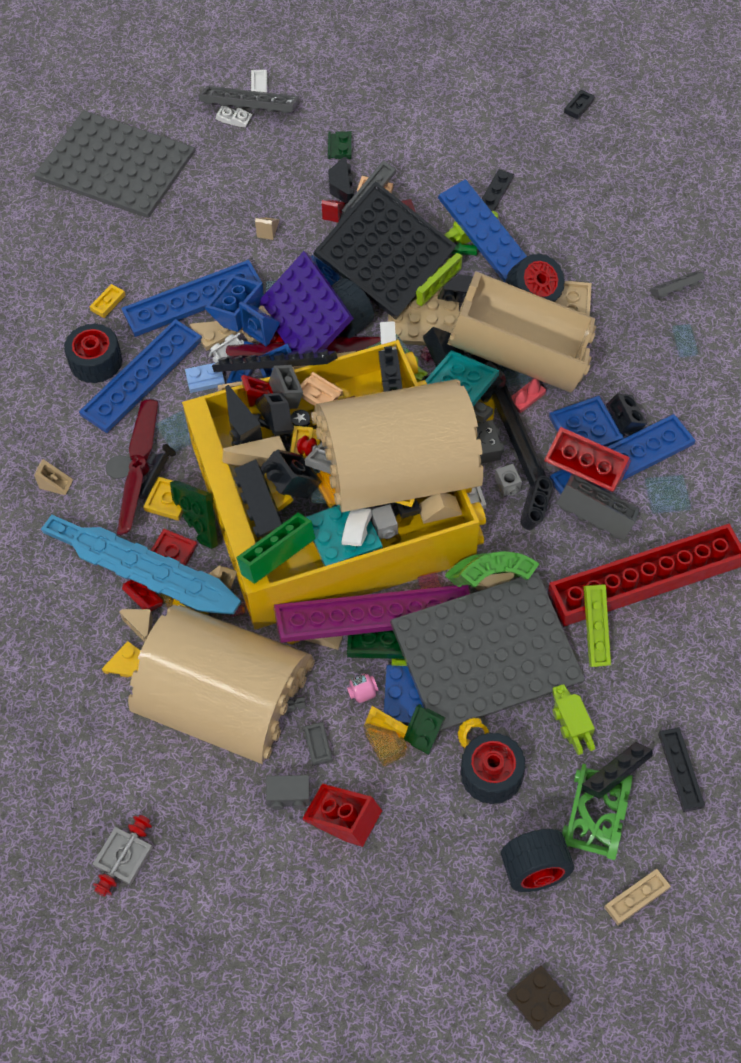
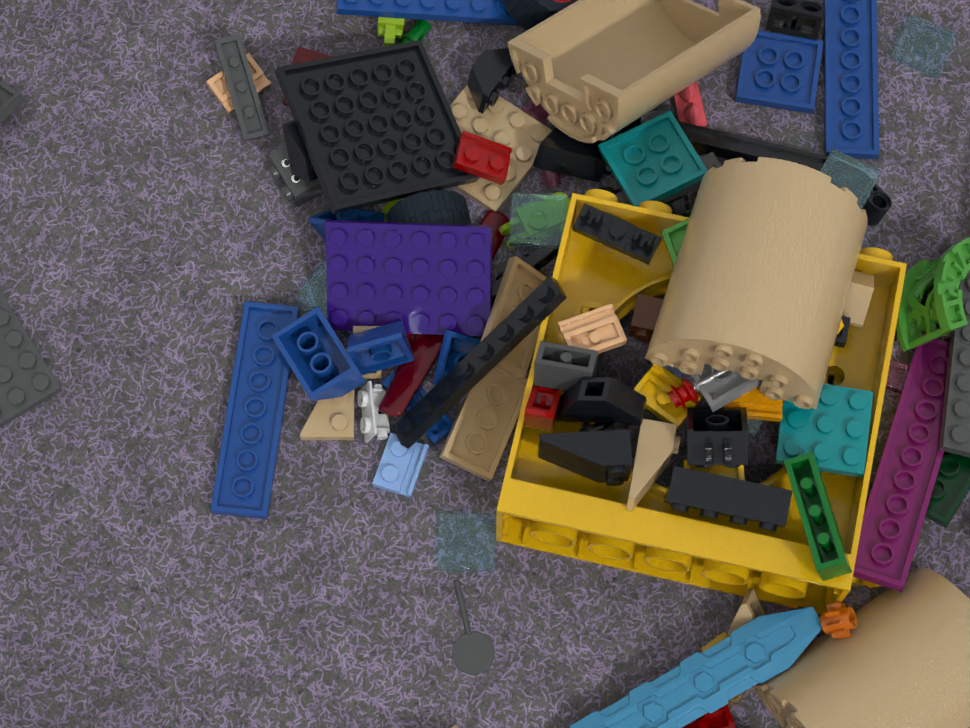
camera: 60 degrees left, 10 degrees up
(93, 353) = (273, 609): black wheel -> none
(107, 301) = (180, 522): yellow plate -> none
(139, 451) = (471, 610): dark red piece -> none
(140, 376) = (345, 546): blue plate -> none
(159, 462) = (511, 595): black piece -> none
(161, 501) = (571, 615): yellow plate -> none
(174, 546) = (651, 651): red tile -> none
(197, 511) = (630, 587): dark green plate -> none
(239, 616) = (838, 620): none -> orange gear
(266, 227) = (200, 246): tan slope -> none
(300, 418) = (620, 374): black tile -> none
(332, 210) = (231, 149): red slope -> none
(340, 144) = (120, 77): dark green plate -> none
(340, 181) = (193, 113): black slope -> none
(355, 527) = (844, 406): white slope -> none
(384, 522) = (845, 369): light grey brick -> none
(387, 332) = (553, 200): white sticker -> none
(408, 311) = (482, 158): none -> red plate
(439, 279) = (449, 85): lime plate -> none
(529, 488) = (851, 173): none -> clear light blue tile
(587, 459) = (843, 97): red slope -> none
(598, 507) = (907, 127): dark grey slope -> none

